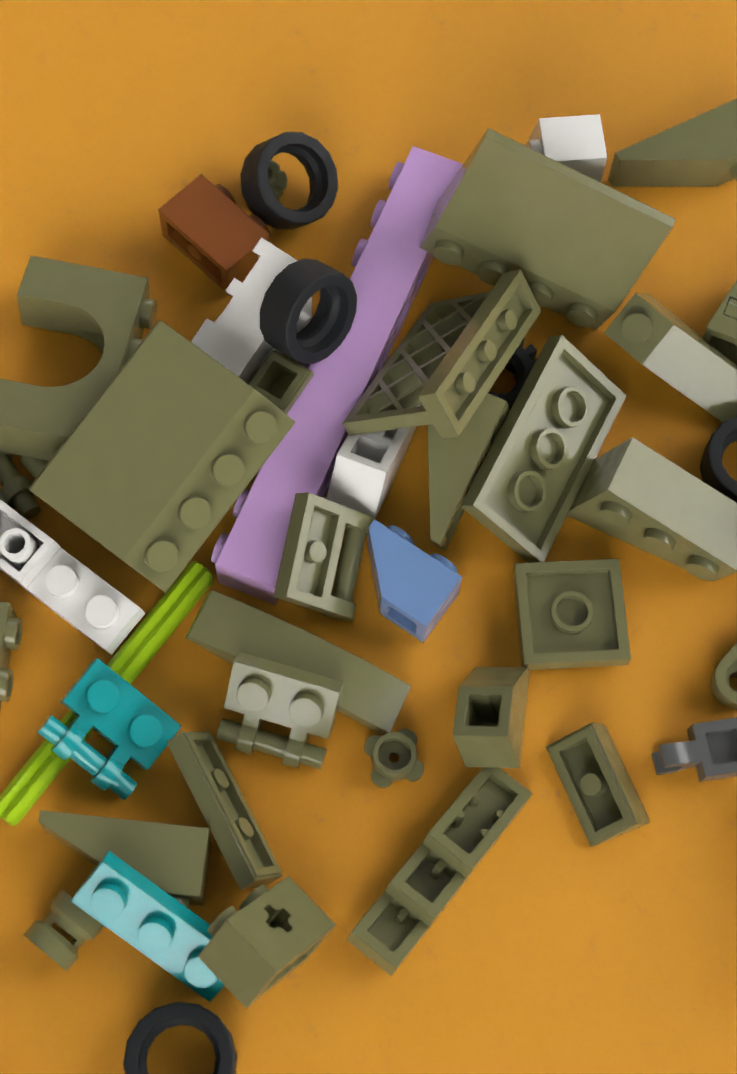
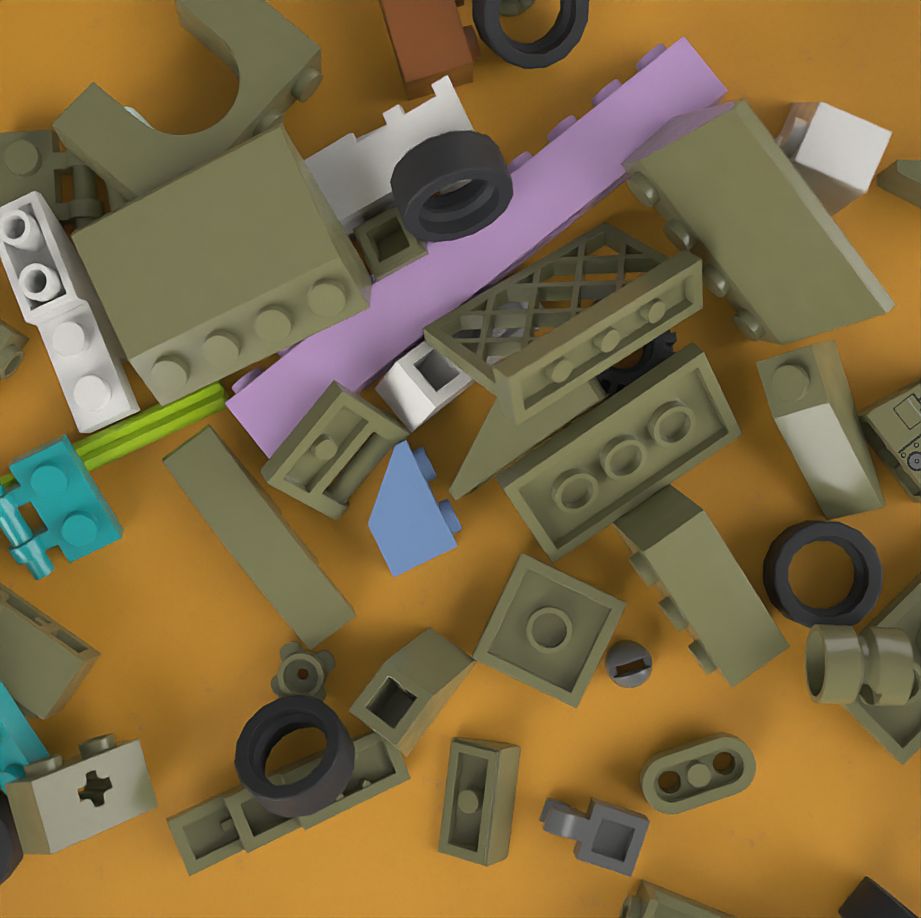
camera: 35 degrees right, 20 degrees up
(225, 809) = (116, 641): olive tile -> none
(283, 697) = (214, 578): olive plate -> none
(449, 832) = (267, 729): none -> black tyre
(659, 617) = (624, 653): none -> dark grey hinge

